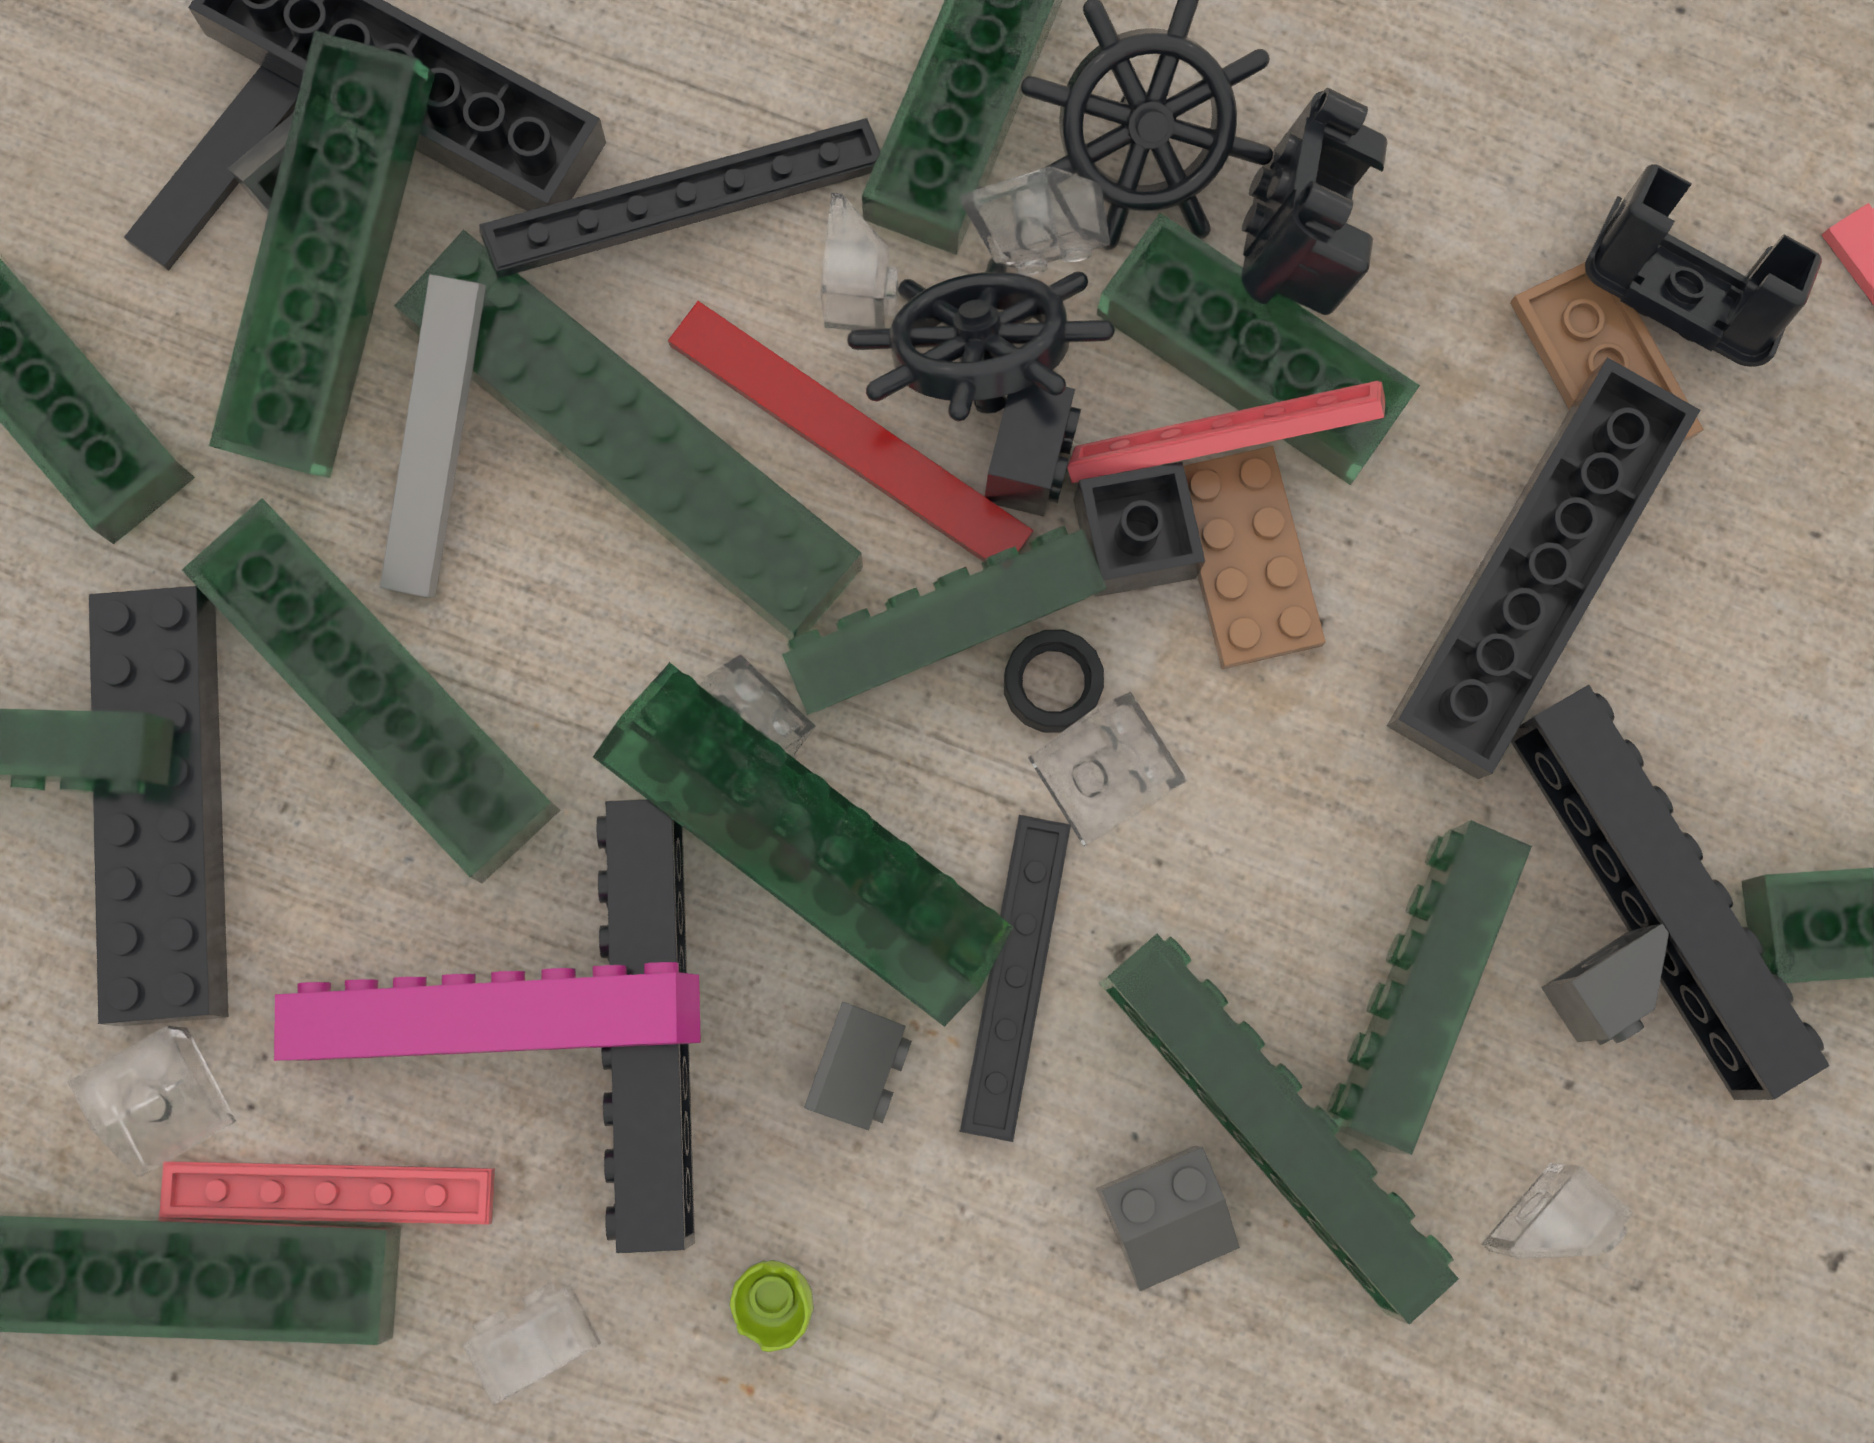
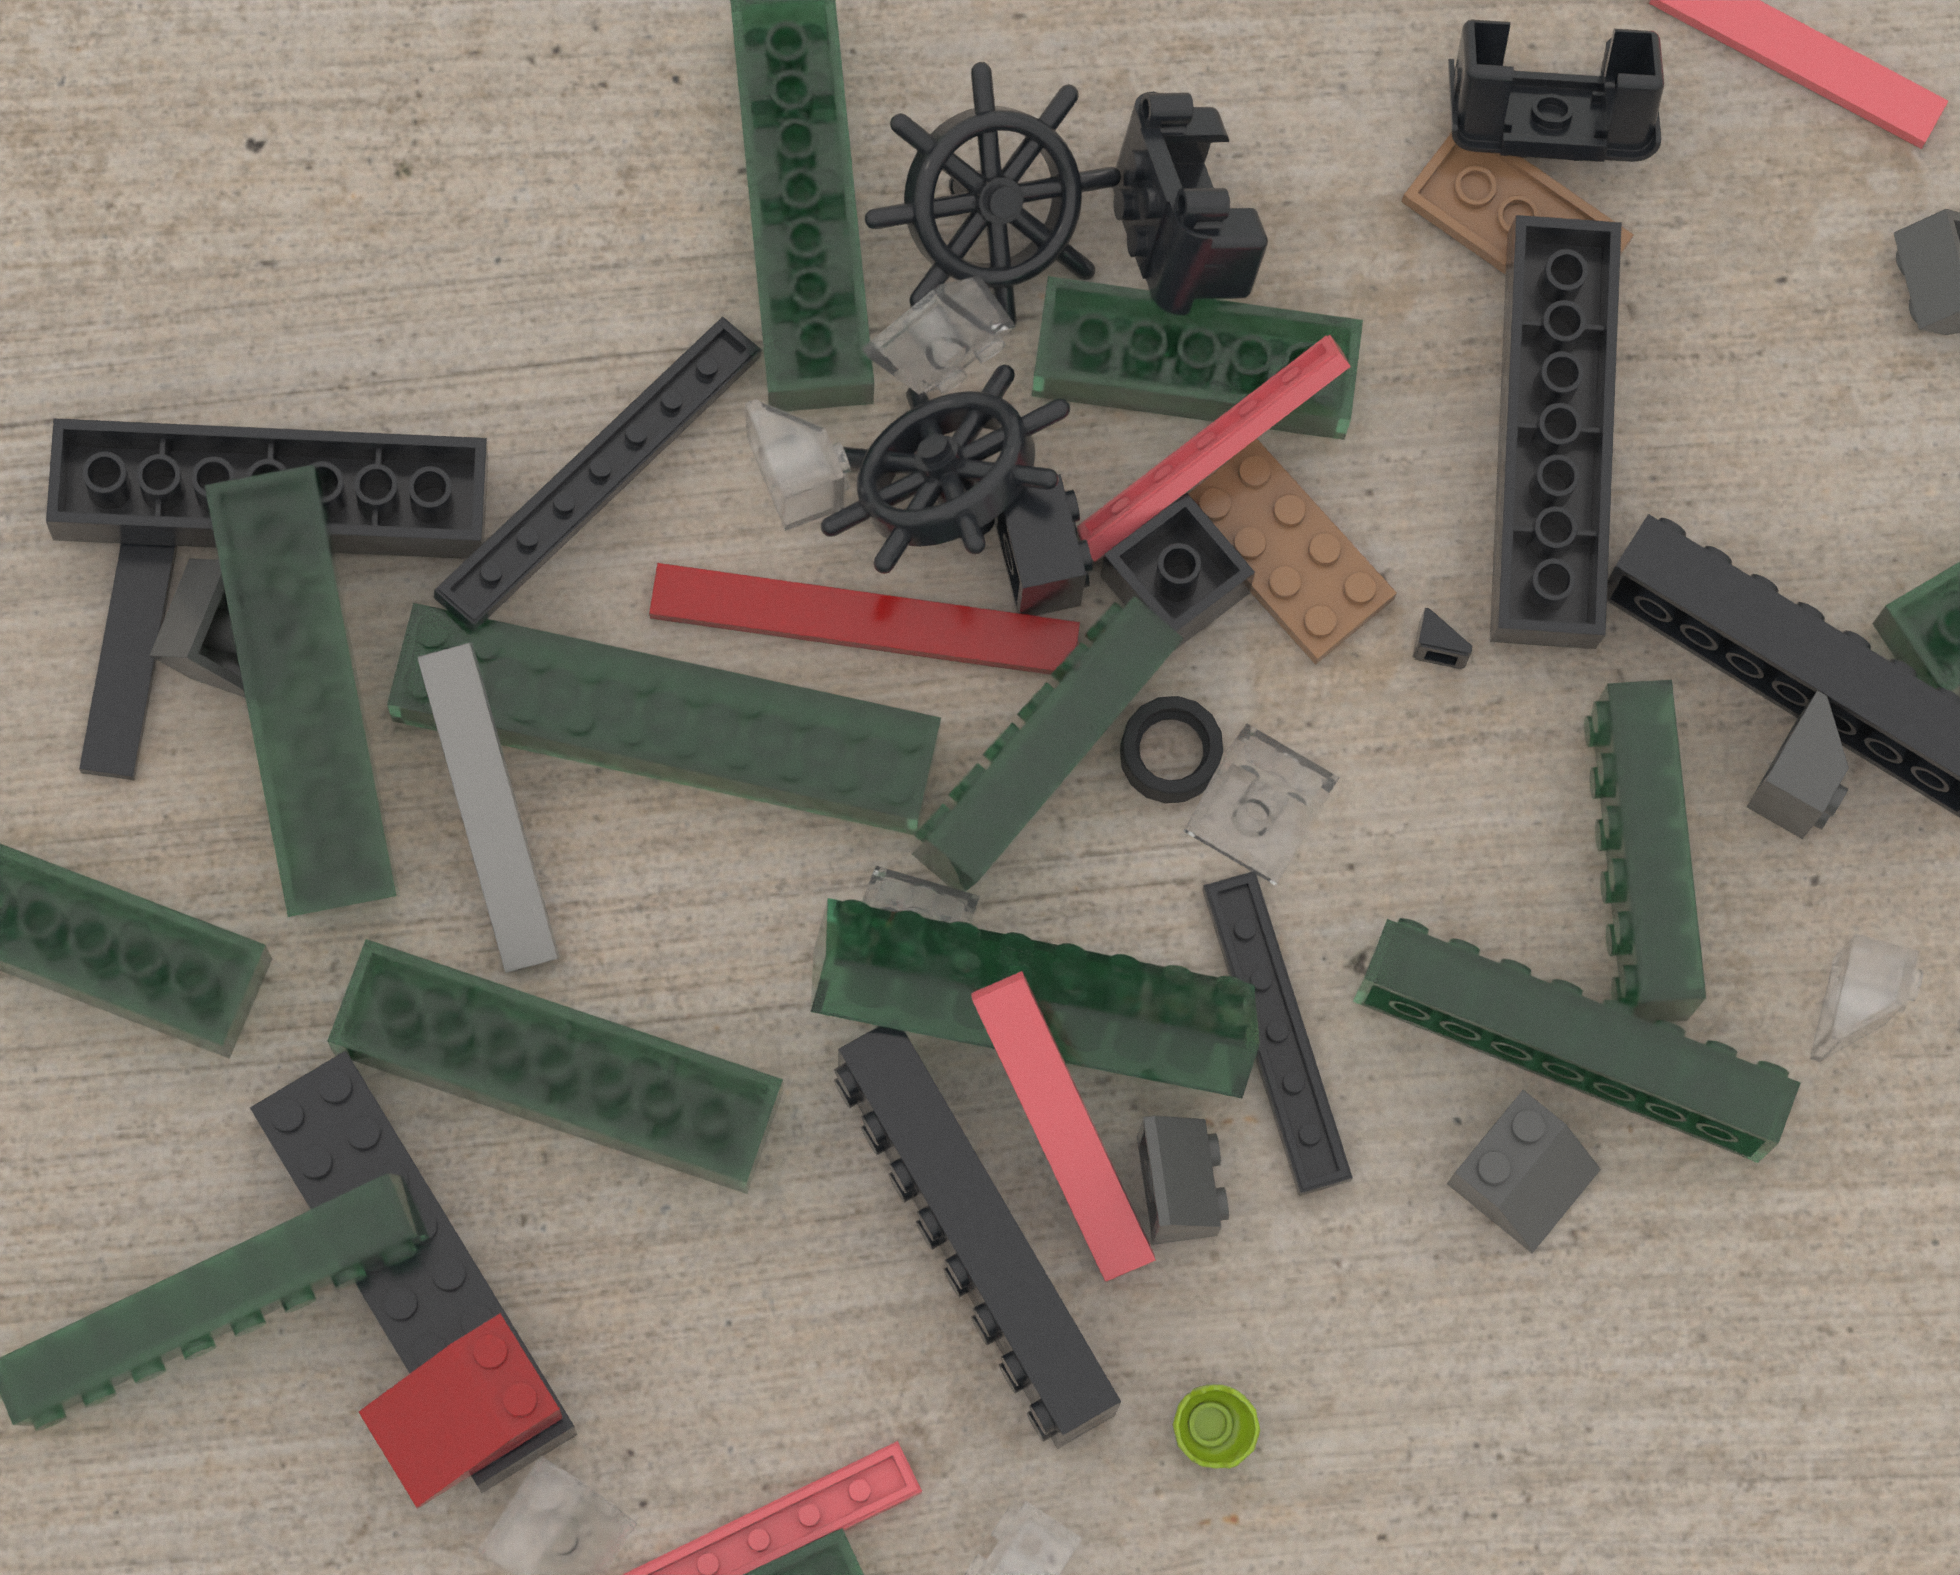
camera: 30 degrees left, 5 degrees down
(112, 953) = (460, 1411): none -> red slope
(489, 1017) = (831, 1294): dark pink brick -> none
(768, 968) = (1063, 1126): none -> coral tile
(1340, 705) = (1440, 643): none -> black slope

